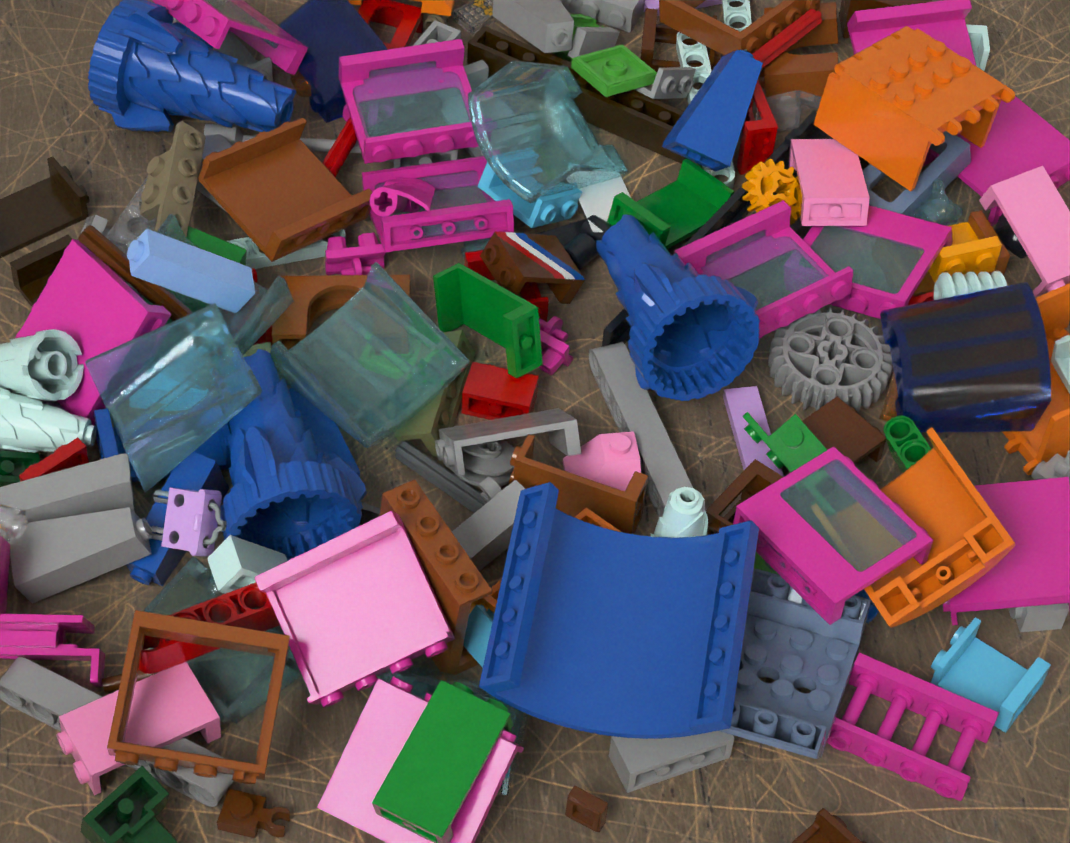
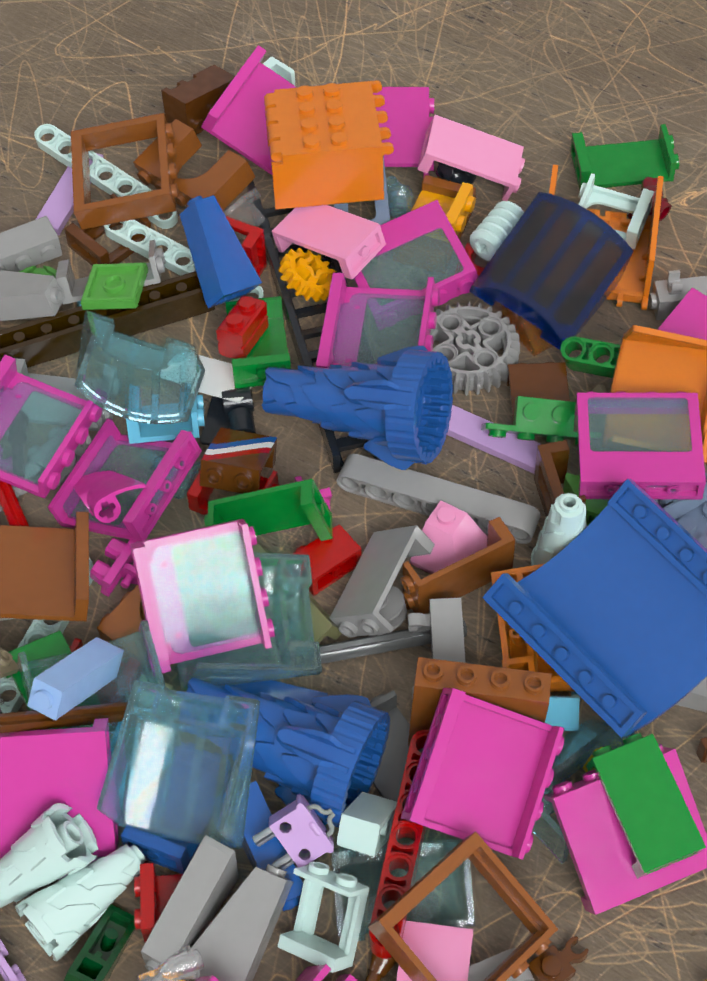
camera: 45 degrees left, 5 degrees up
(110, 608) = (302, 940): none -> light aqua panel
(348, 302) = (202, 592): none -> clear light blue panel
(671, 184) = (242, 327): none -> red brick
(788, 37) = (185, 168): red axle -> none

